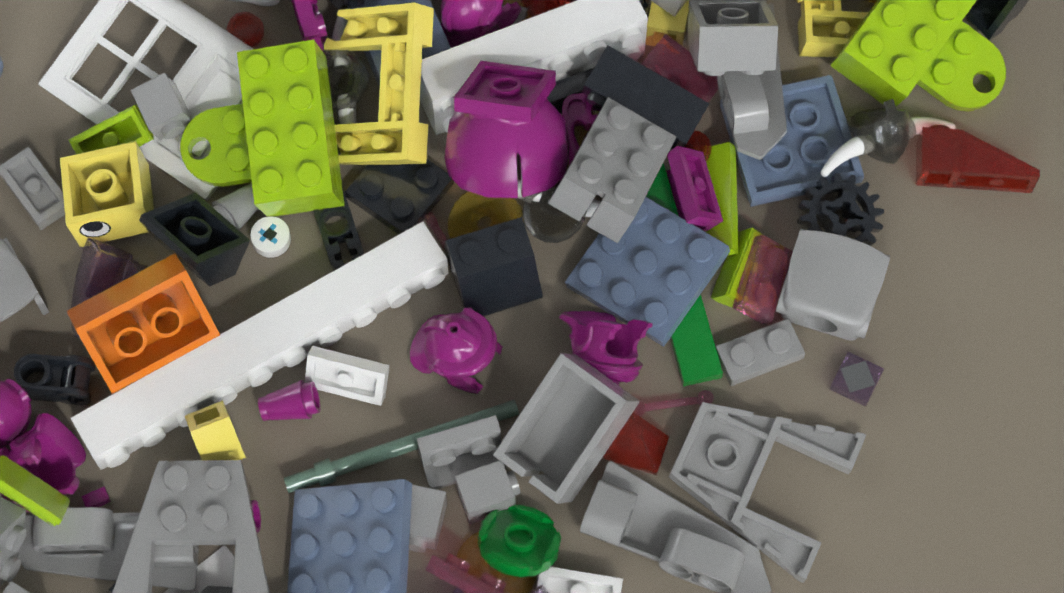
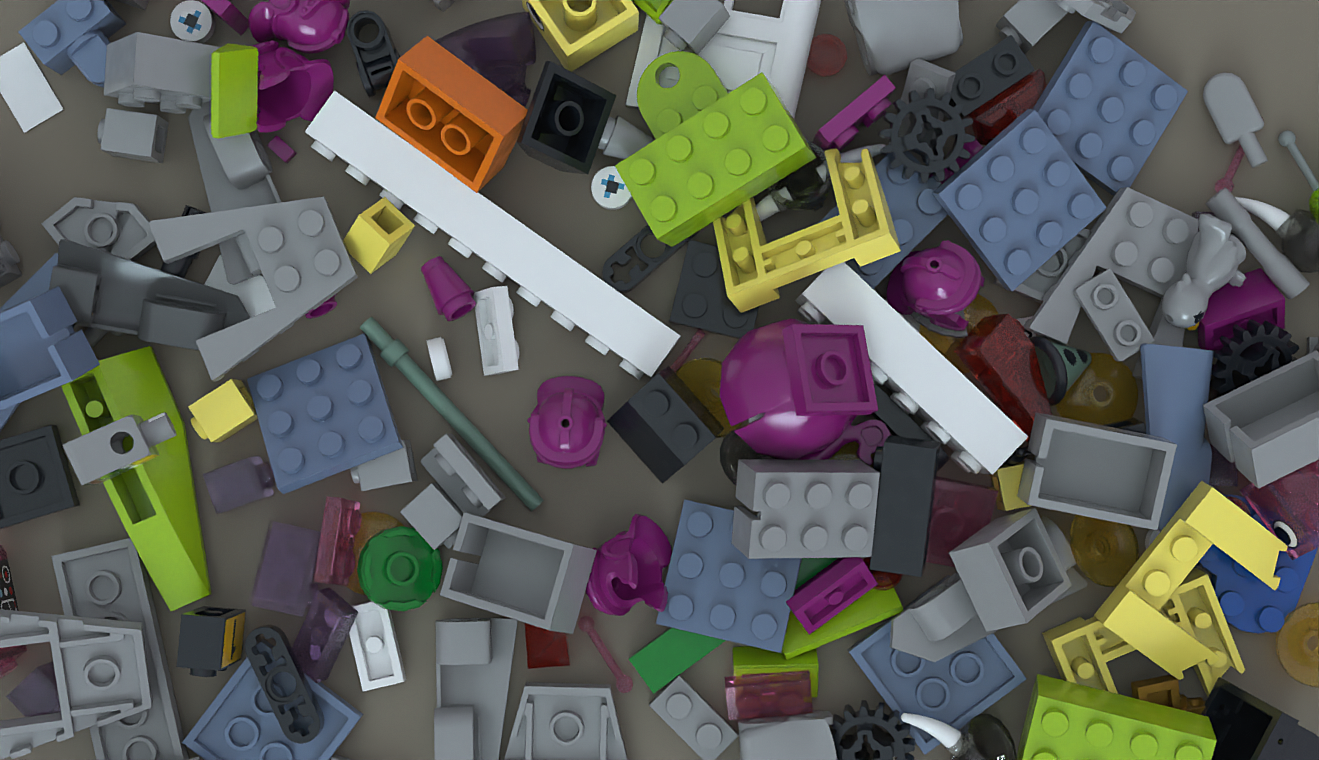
camera: 65 degrees right, 20 degrees up
(348, 433) = (439, 358): none -> white tile

